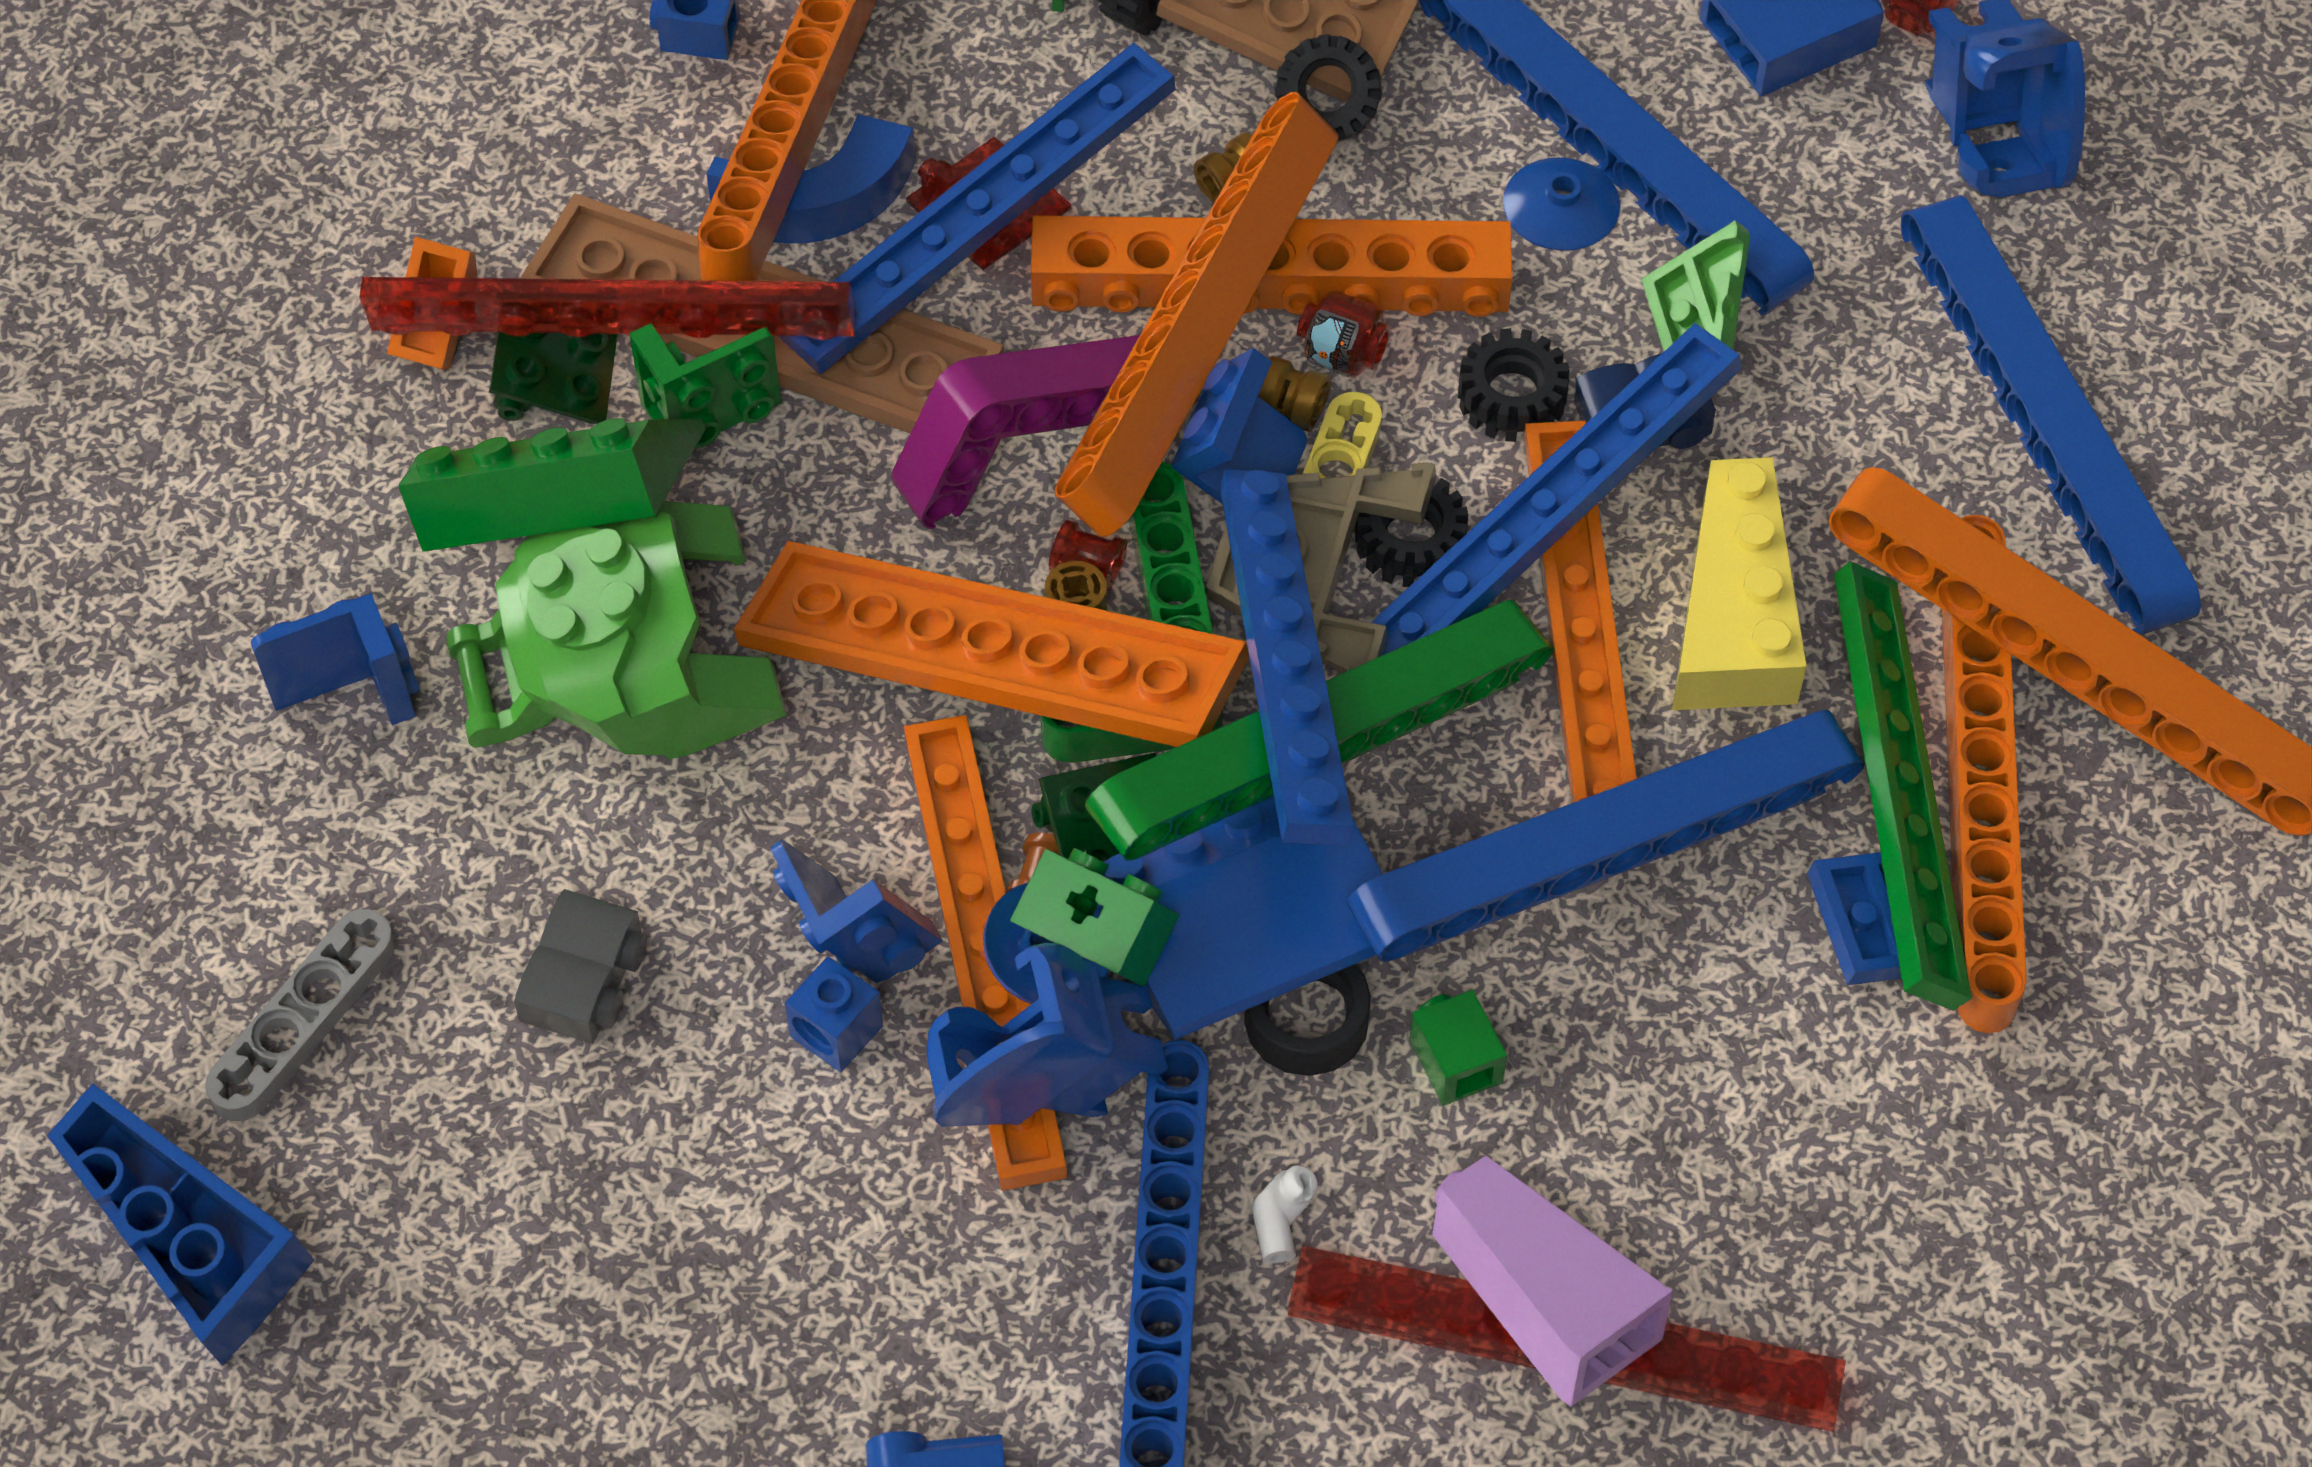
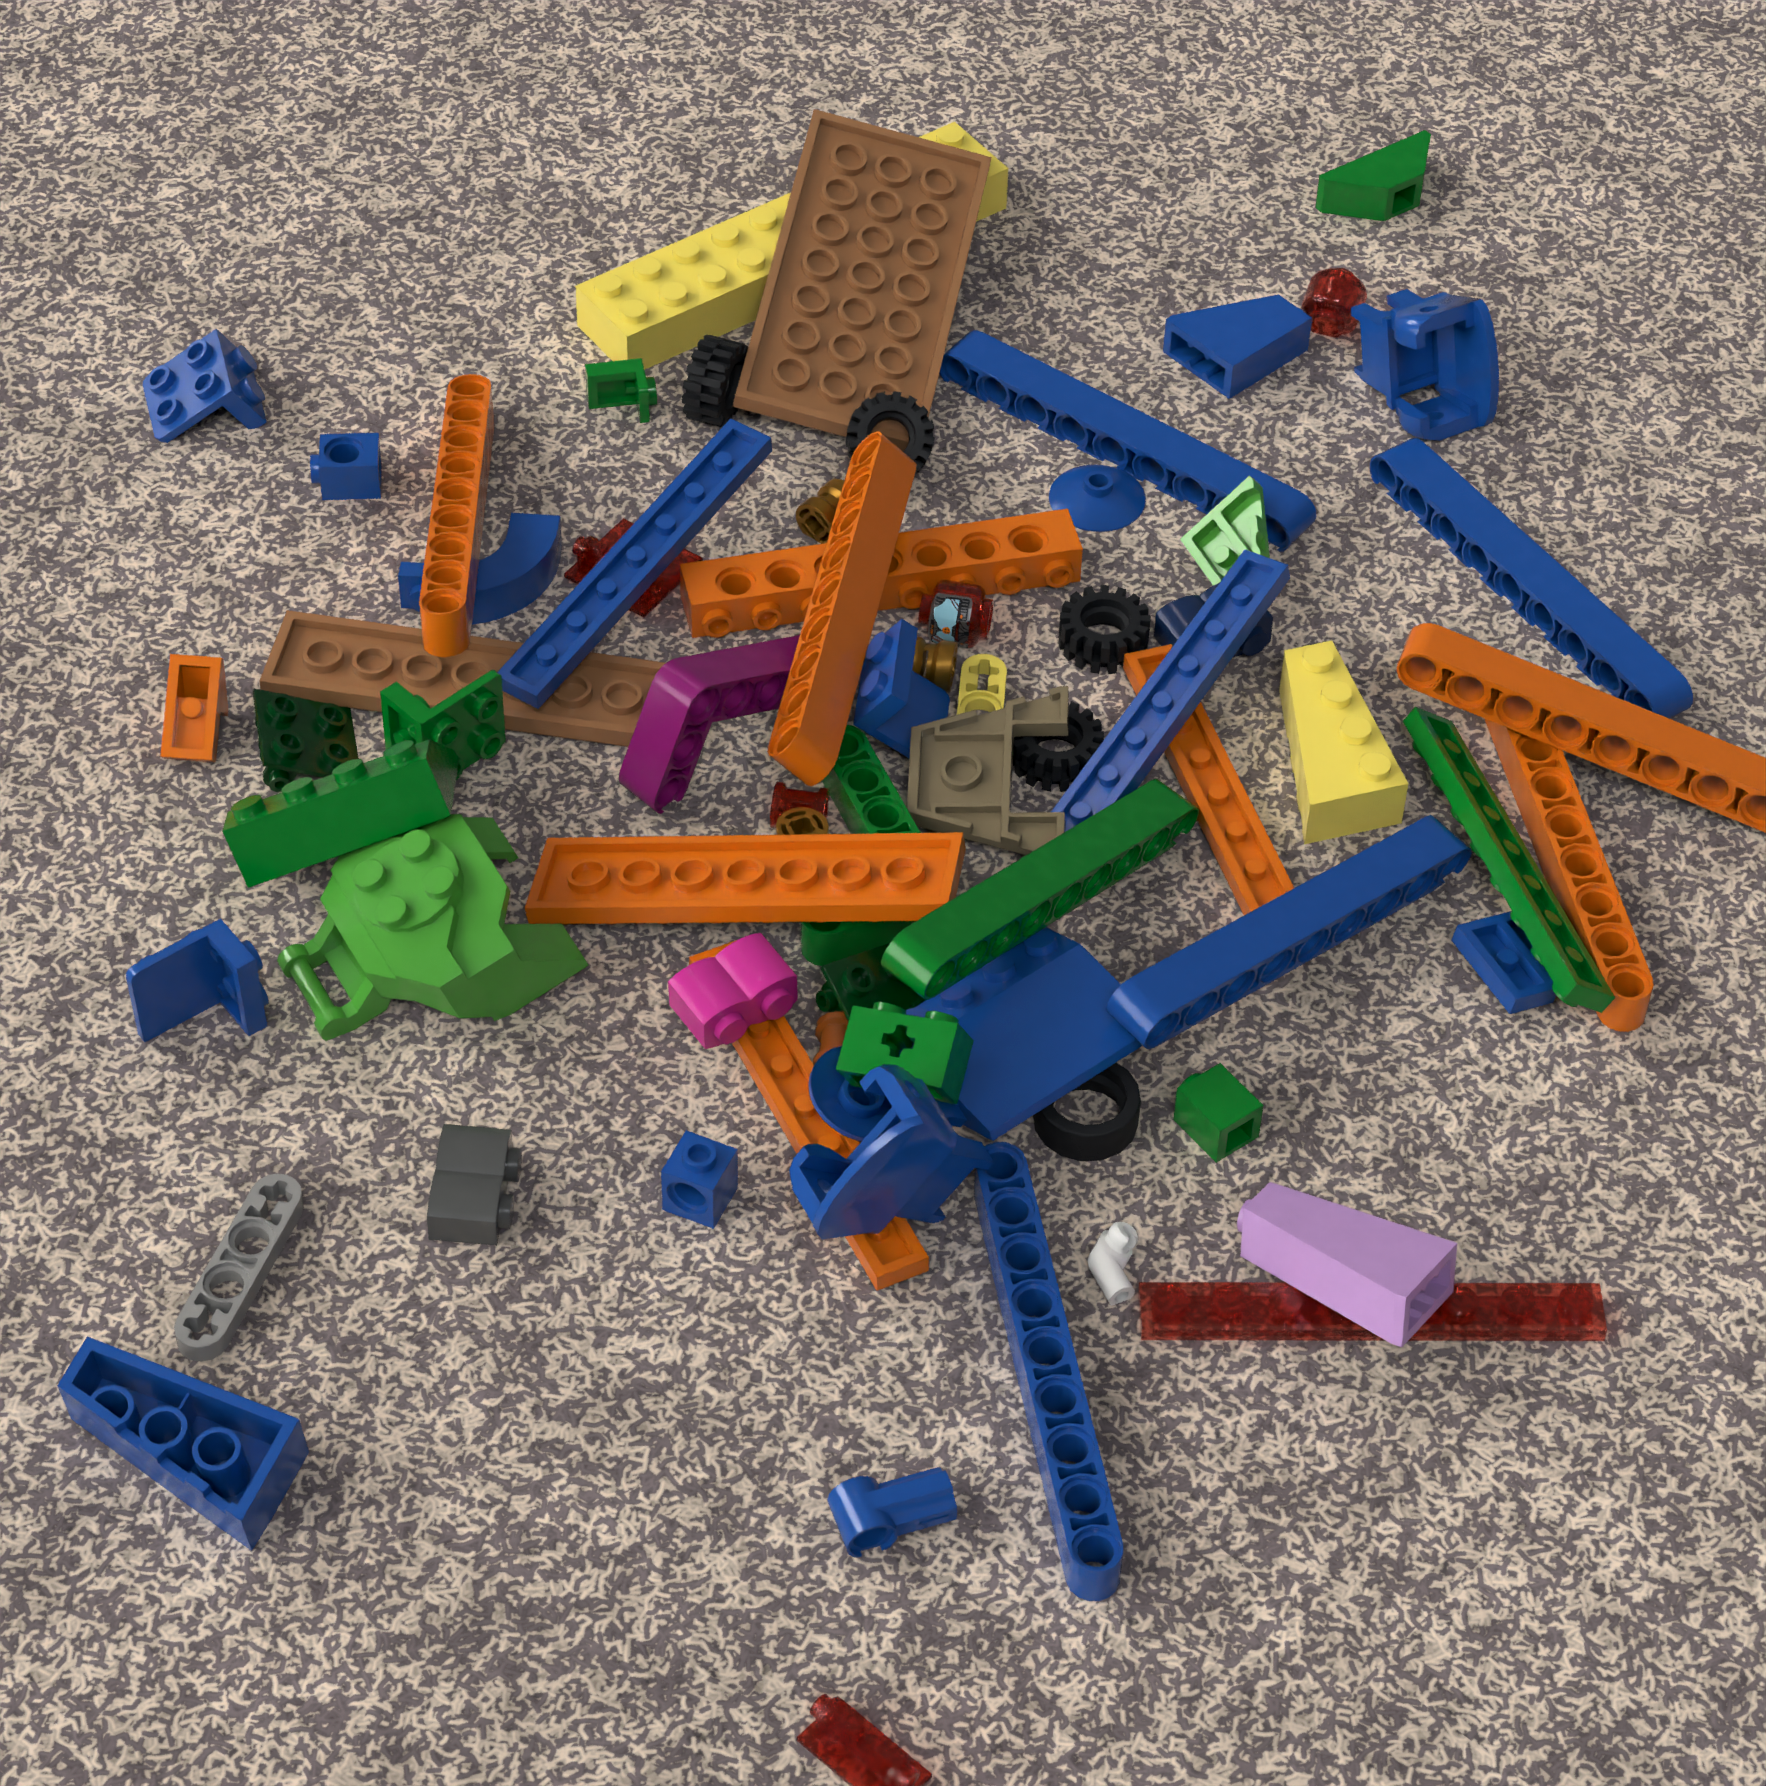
camera: 15 degrees left, 10 degrees down
(607, 306) = (348, 678): clear red plate -> none
(866, 930) = (710, 1104): blue bracket -> none
(934, 786) = (733, 990): none -> dark pink brick
(1285, 660) = (1003, 834): blue plate -> none

